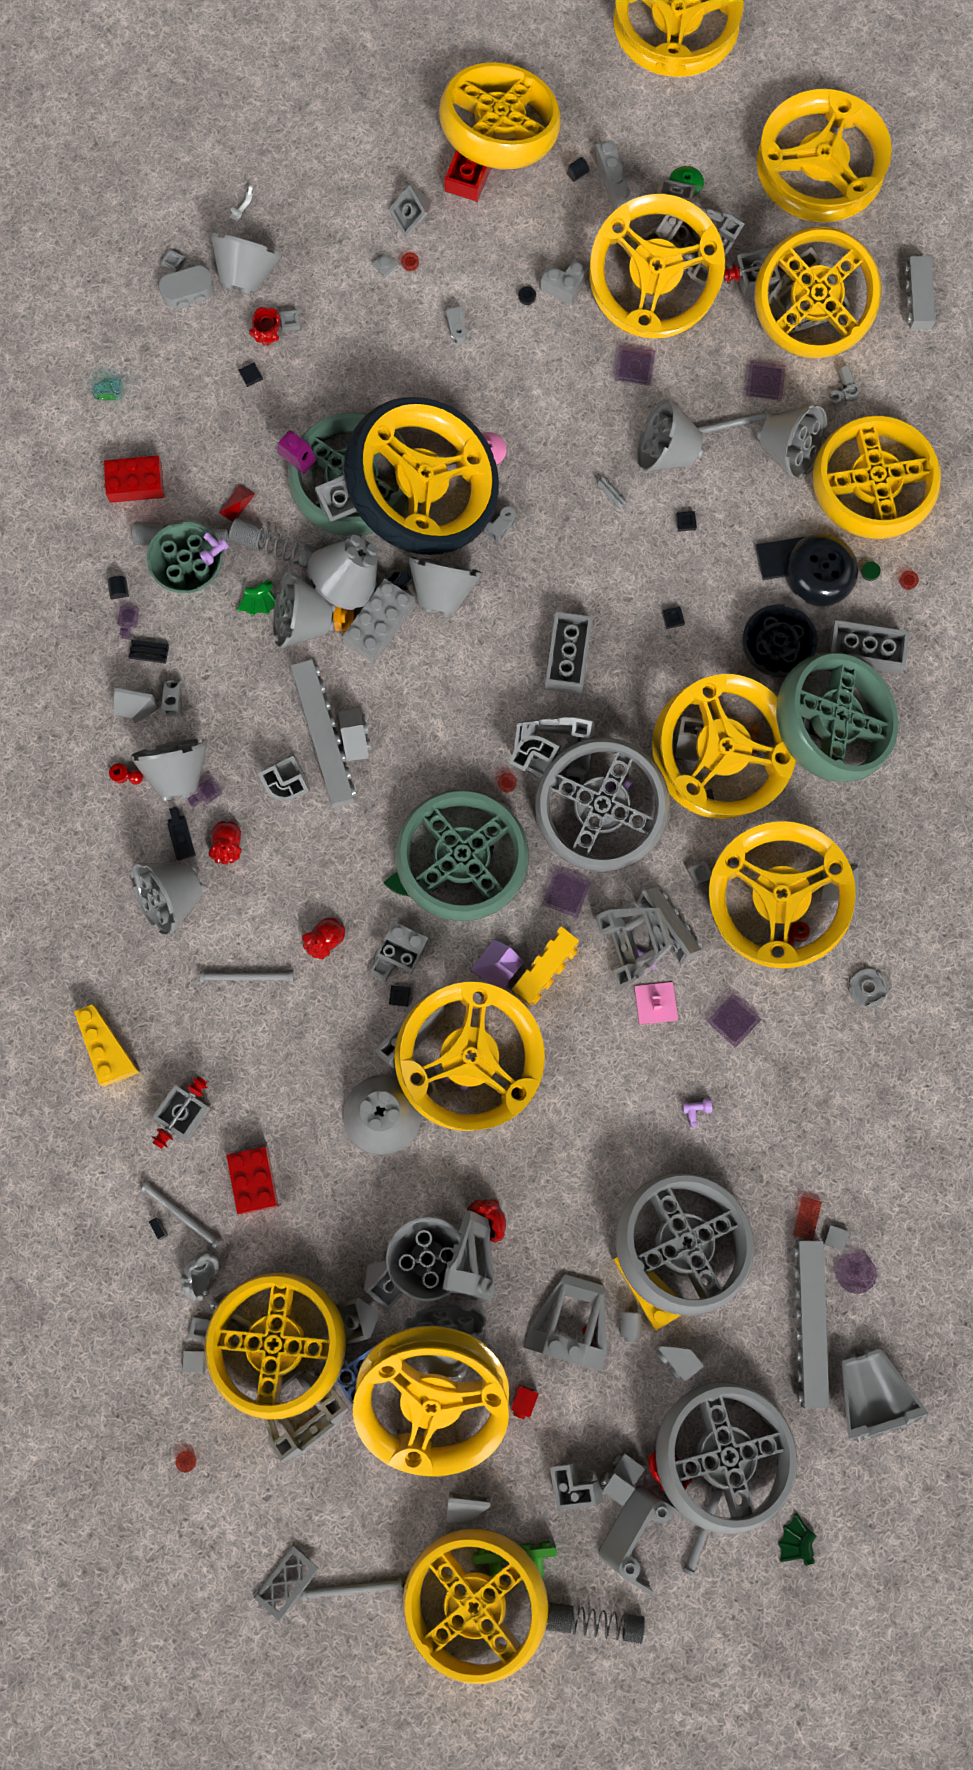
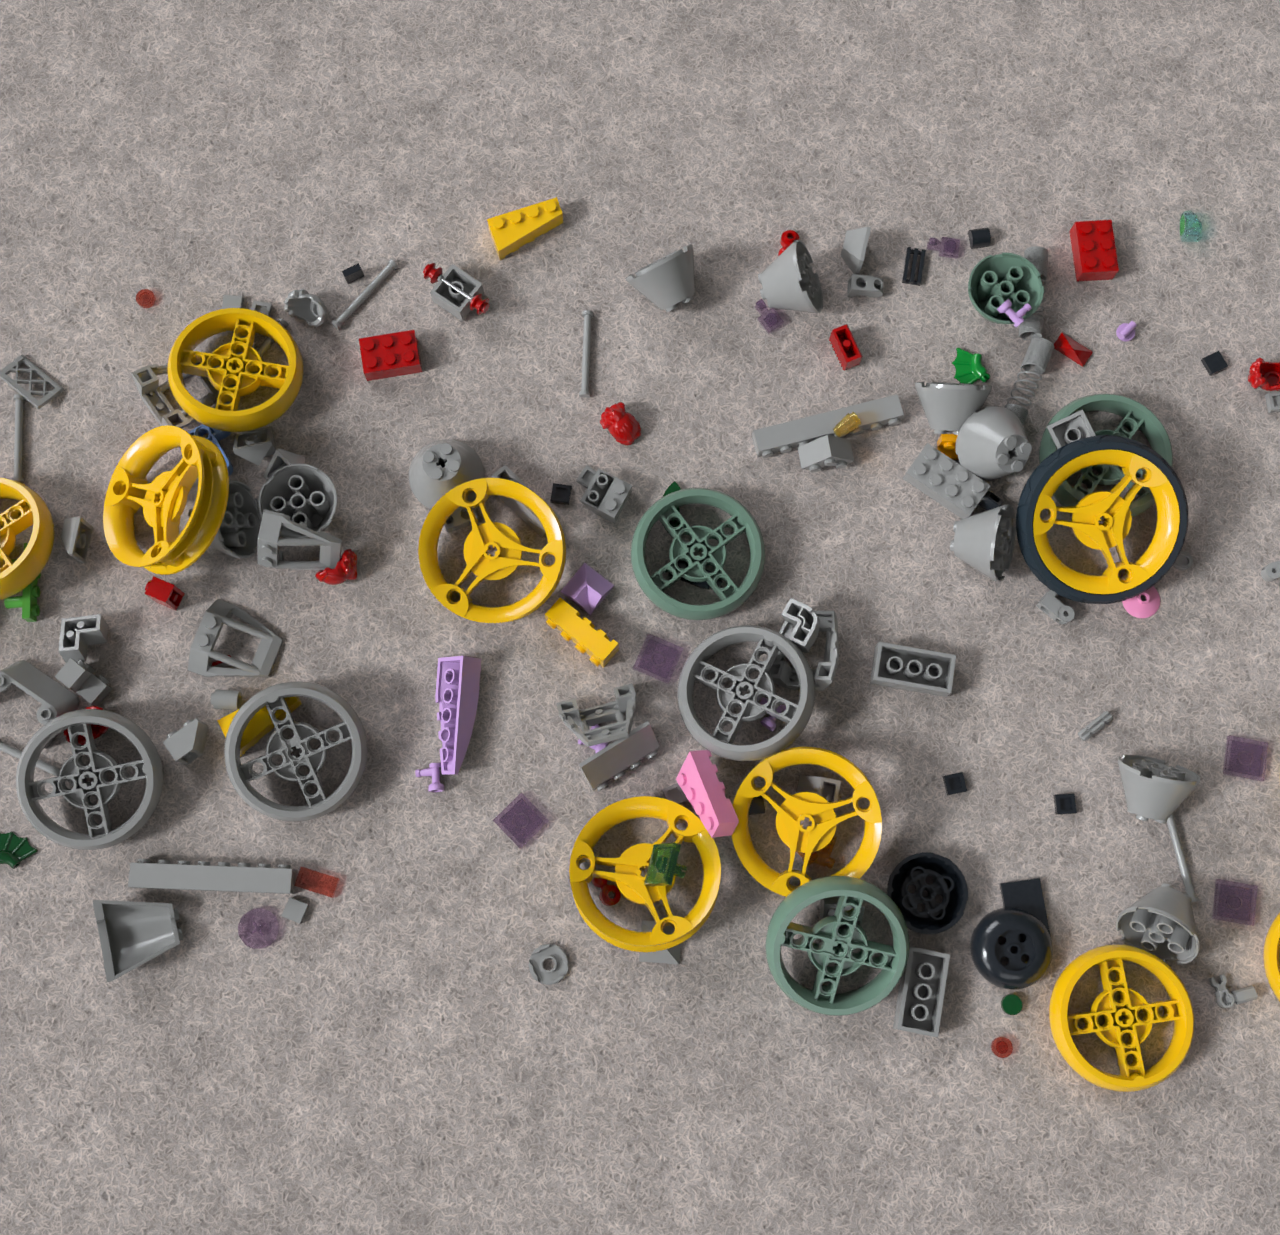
camera: 90 degrees right, 0 degrees up
(180, 835) = (726, 294): black hinge -> none
(218, 452) = (1126, 331): none -> lavender plate
(225, 842) = (718, 334): red hair -> none
(240, 715) = (845, 347): none -> red brick
(284, 780) = (778, 387): light grey brick -> none
(293, 448) = (1125, 393): magenta torso -> none
(325, 710) = (847, 424): none -> clear yellow cone
(507, 782) = (775, 604): clear red tile -> none
(619, 1087) = (458, 698): none -> lavender wedge
(656, 1003) = (542, 743): bright pink piece -> none
(704, 838) = (707, 794): none -> bright pink wedge
(778, 872) = (664, 865): none -> clear green tile

